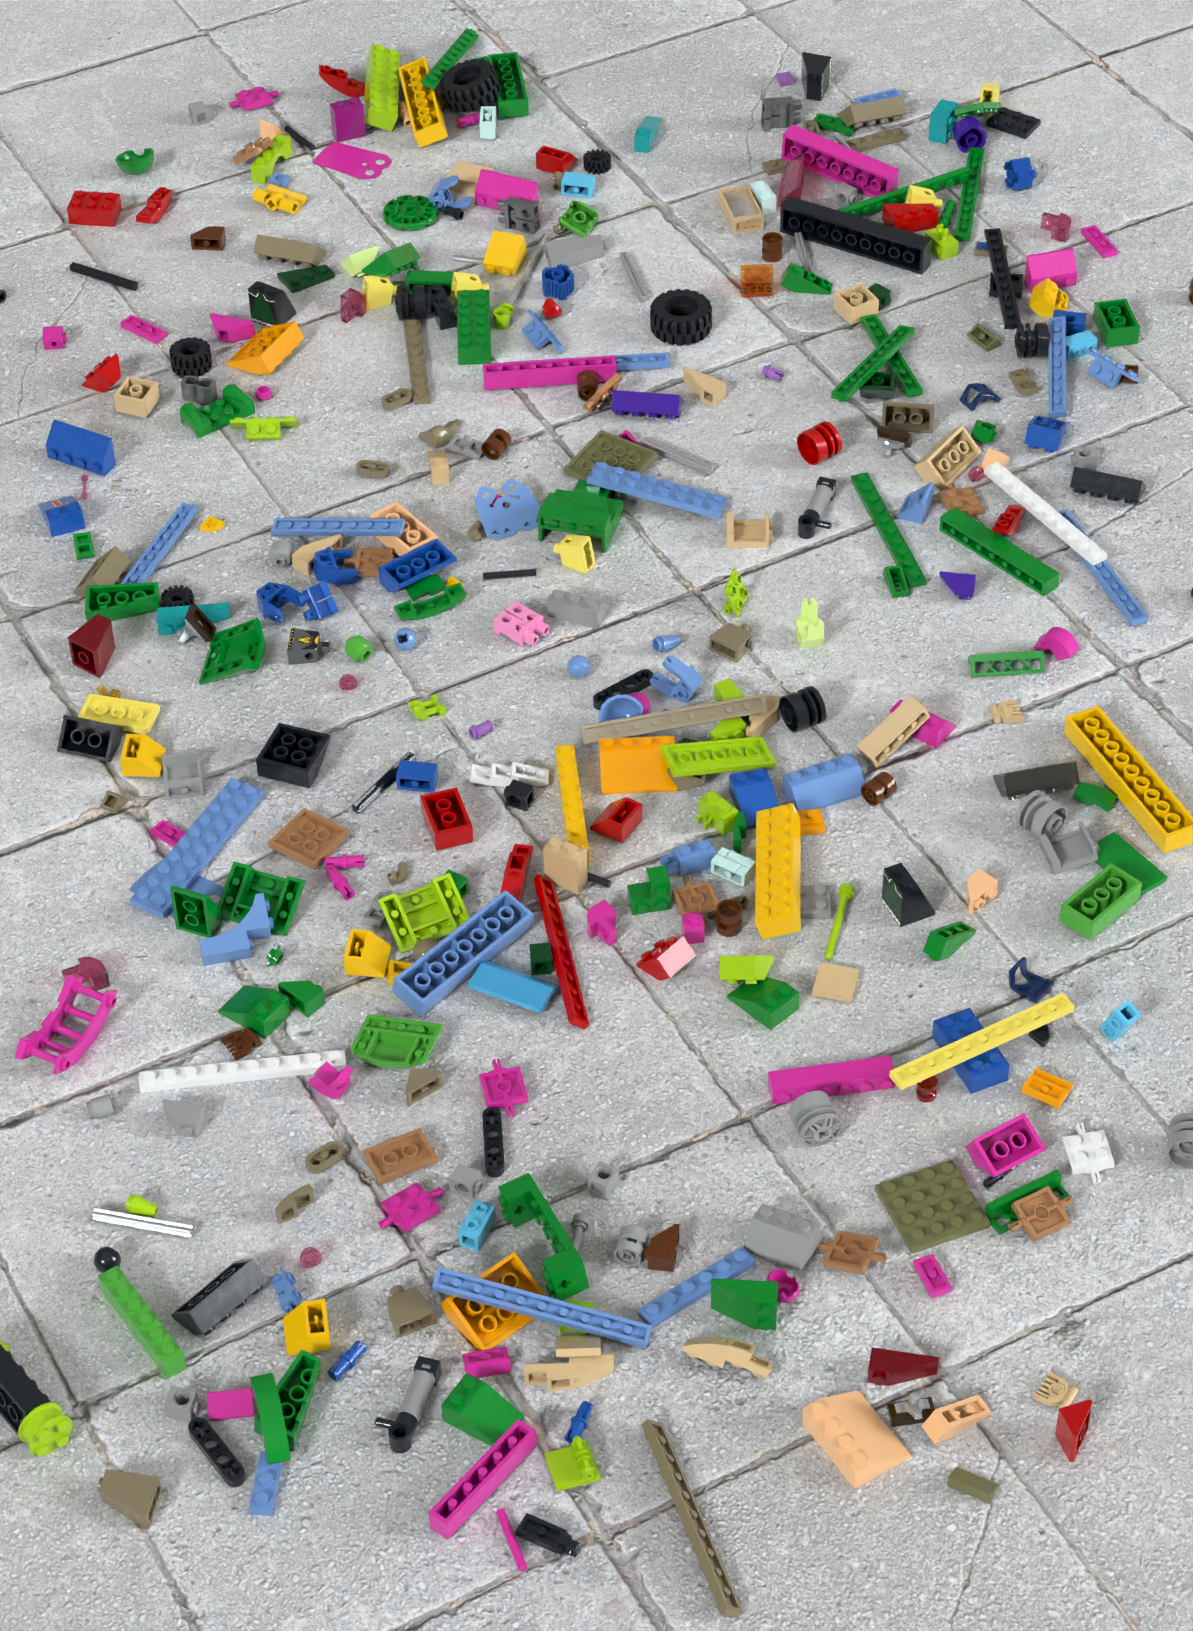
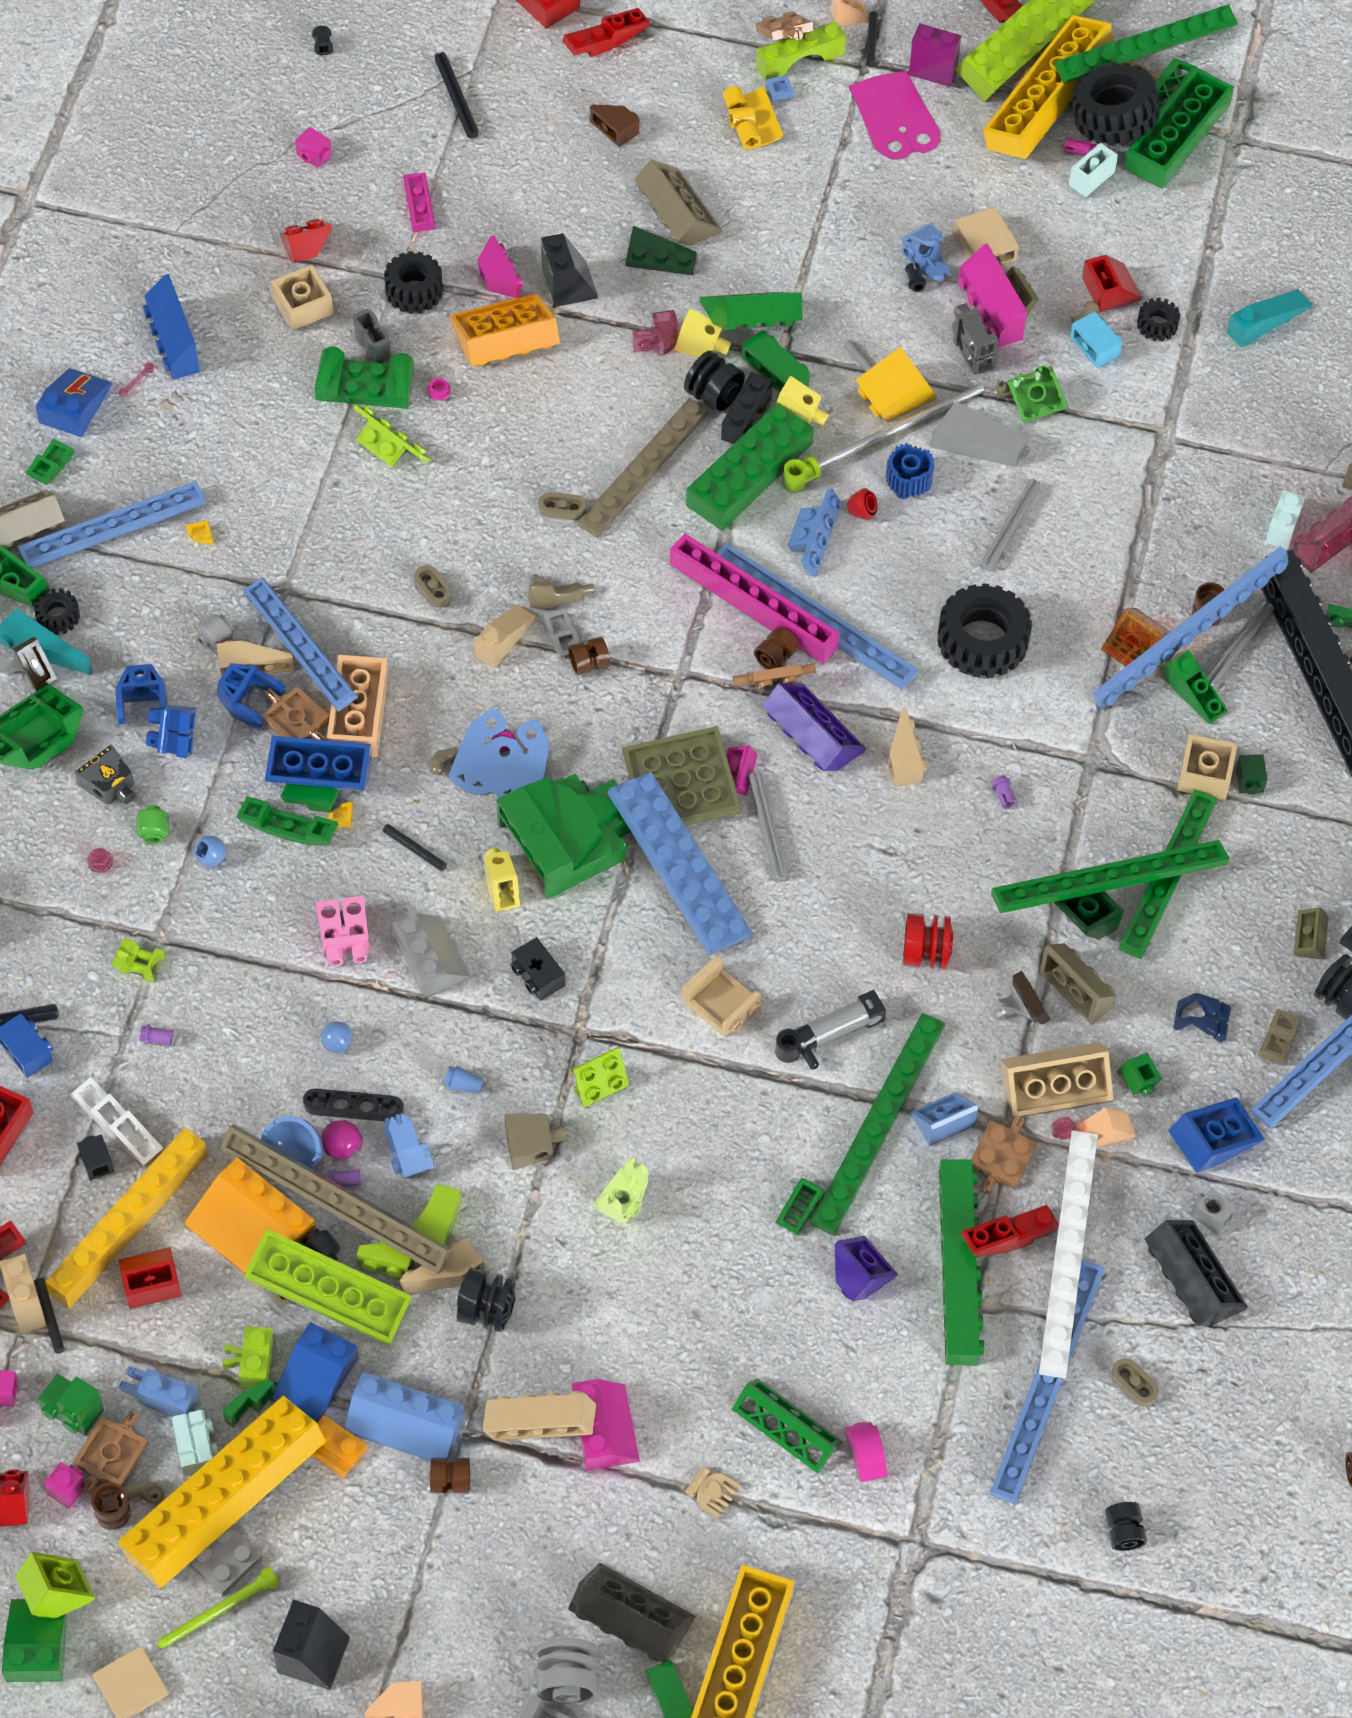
camera: 40 degrees right, 15 degrees up
(356, 262) = (731, 276): yellowish green slope -> none
(399, 217) = (866, 252): green plate -> none
(642, 576) = (538, 969): none -> black brick
(740, 209) = (1241, 518): tan window -> none
(781, 257) = (1190, 628): none -> medium blue plate
(1136, 541) = (1136, 1382): none -> dark tan plate

